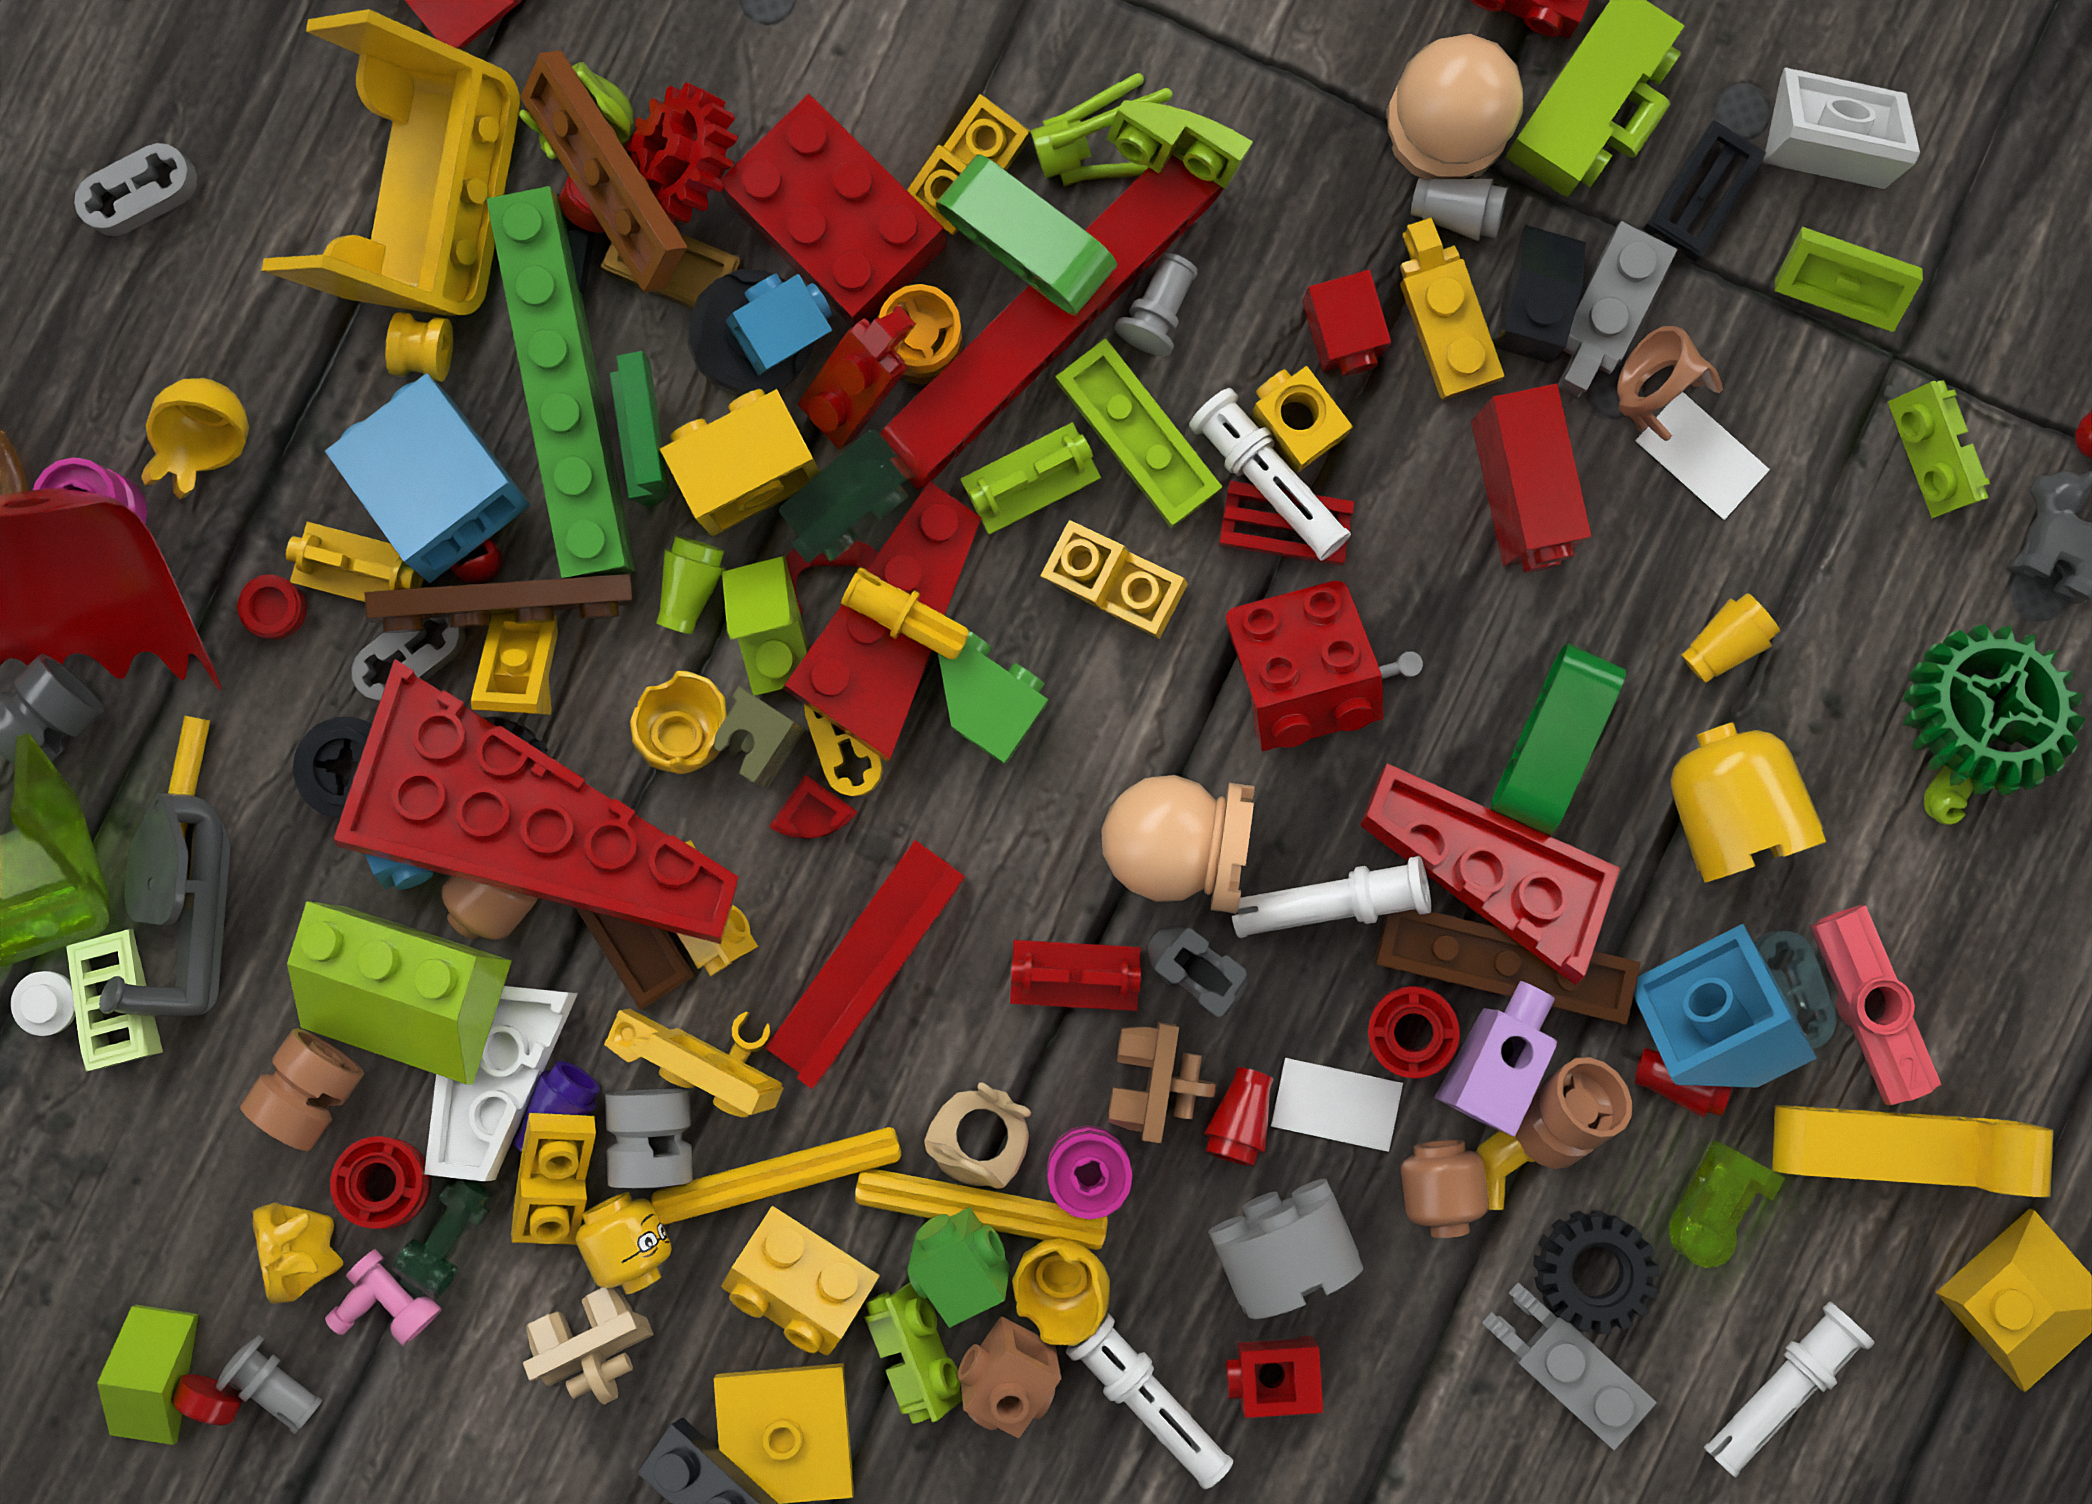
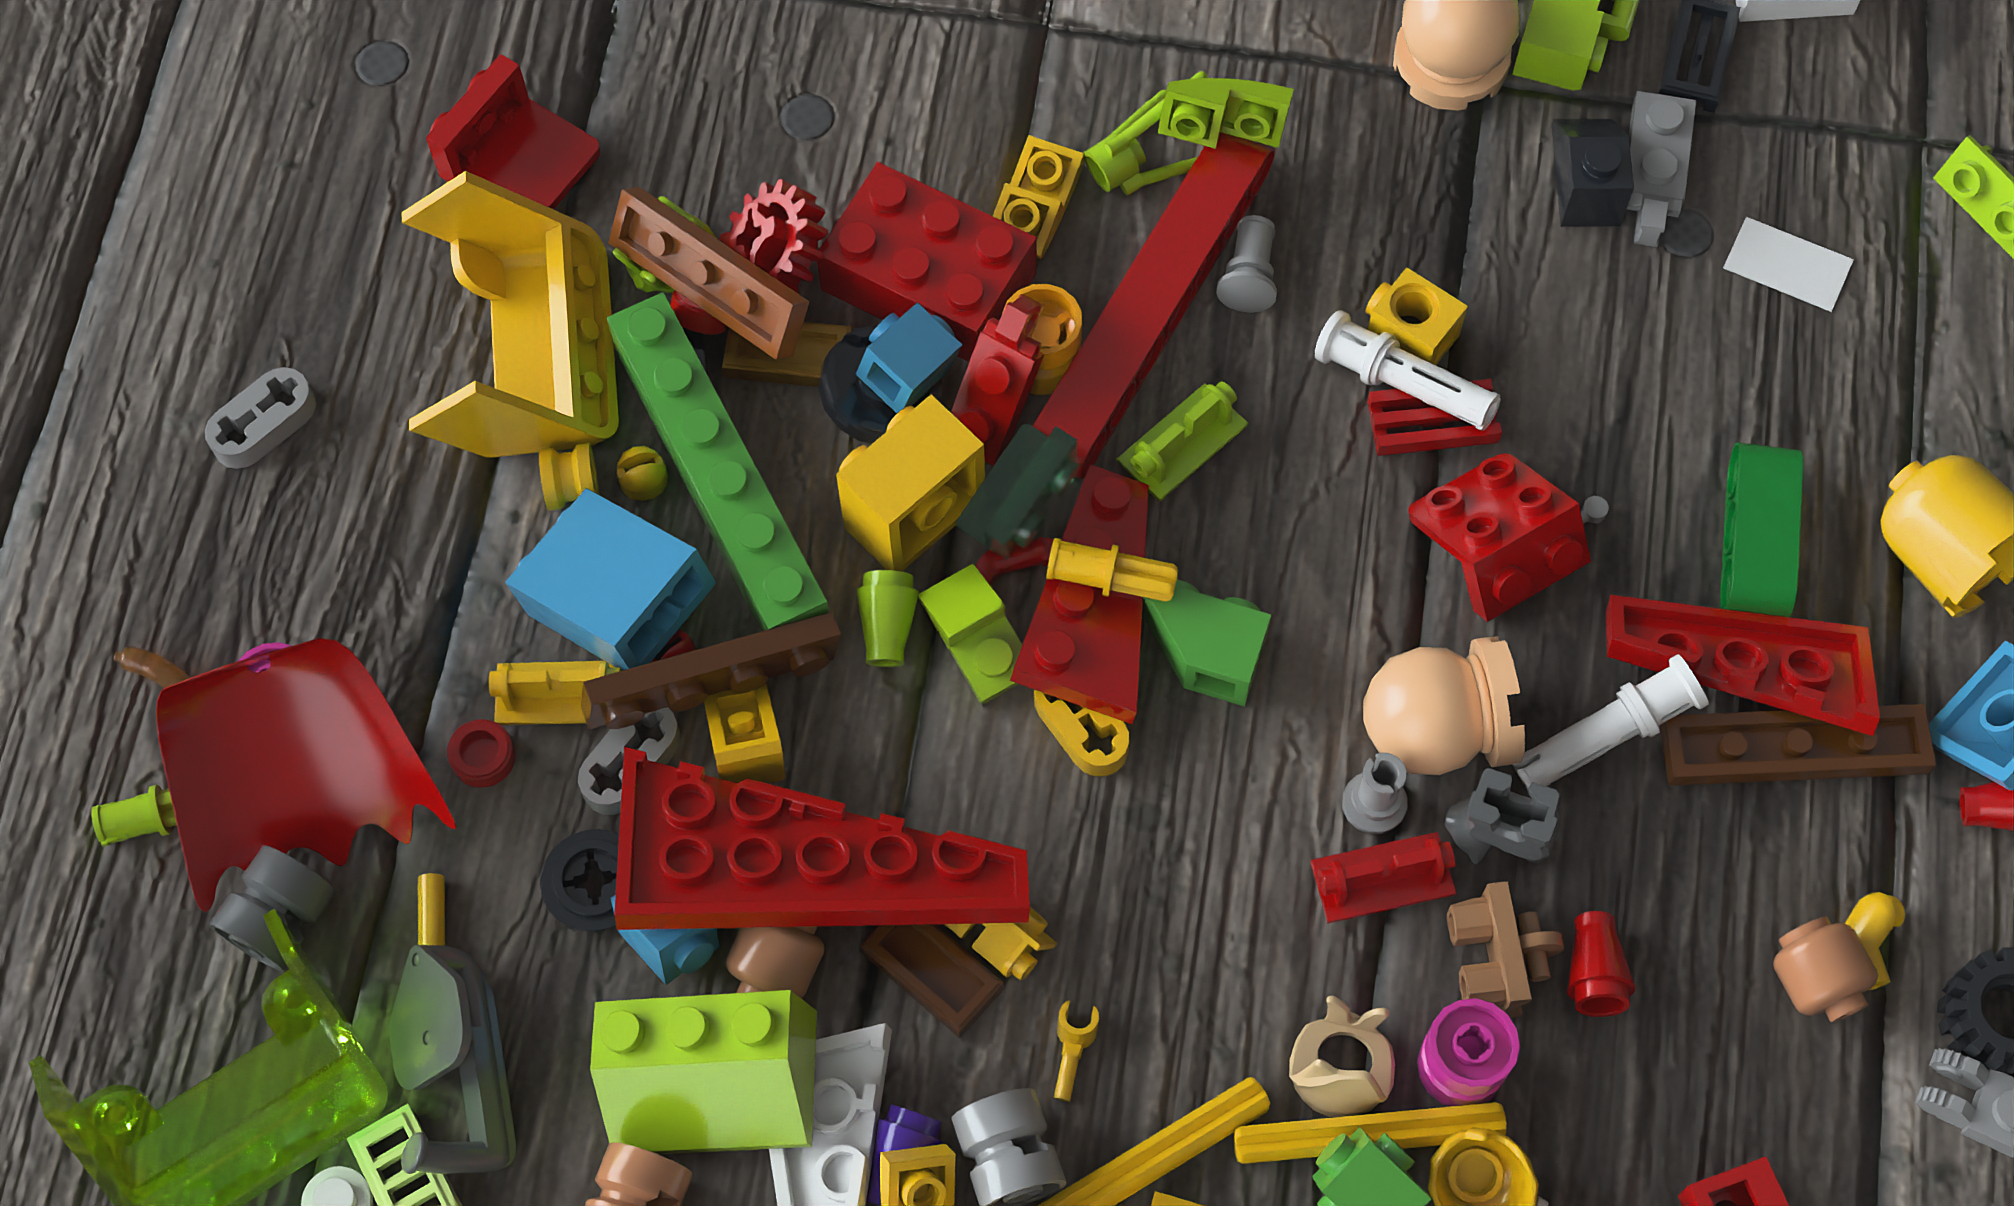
camera: 10 degrees left, 20 degrees down
(193, 430) = (371, 602): yellow piece -> none
(494, 370) = (644, 480): none -> yellow hinge
(639, 429) = (809, 481): green slope -> none
(678, 723) = (920, 740): yellow hair -> none
(693, 1063) = (1024, 1063): yellow hinge -> none
(761, 733) = (1005, 716): olive hinge -> none
(812, 812) = (1072, 797): red tile -> none
(865, 963) = (1172, 923): red fence -> none
(1026, 234) = (1115, 222): beam -> none
(1093, 898) = (1376, 797): none -> light grey pin
(1114, 579) = (1291, 510): yellow slope -> none
(1138, 433) = (1270, 375): lime plate -> none
(1286, 1250) = (1694, 1067): light grey brick -> none
(1337, 1104) = (1685, 933): white sticker -> none
(1347, 323) = (1426, 230): red brick -> none
(1421, 1061) = (1742, 803): red wheel -> none
(1447, 314) = (1512, 206): yellow hinge -> none
(1461, 205) = (1491, 114): light grey cone -> none
(1479, 1078) = (1832, 832): lavender torso -> none
(1531, 478) = (1646, 305): red brick -> none
(1574, 1113) = (1920, 855): nougat wheel -> none
(1658, 350) = (1743, 182): nougat piece -> none
(1730, 638) = (1883, 400): yellow cone -> none
(1848, 279) = (1856, 83): lime plate -> none

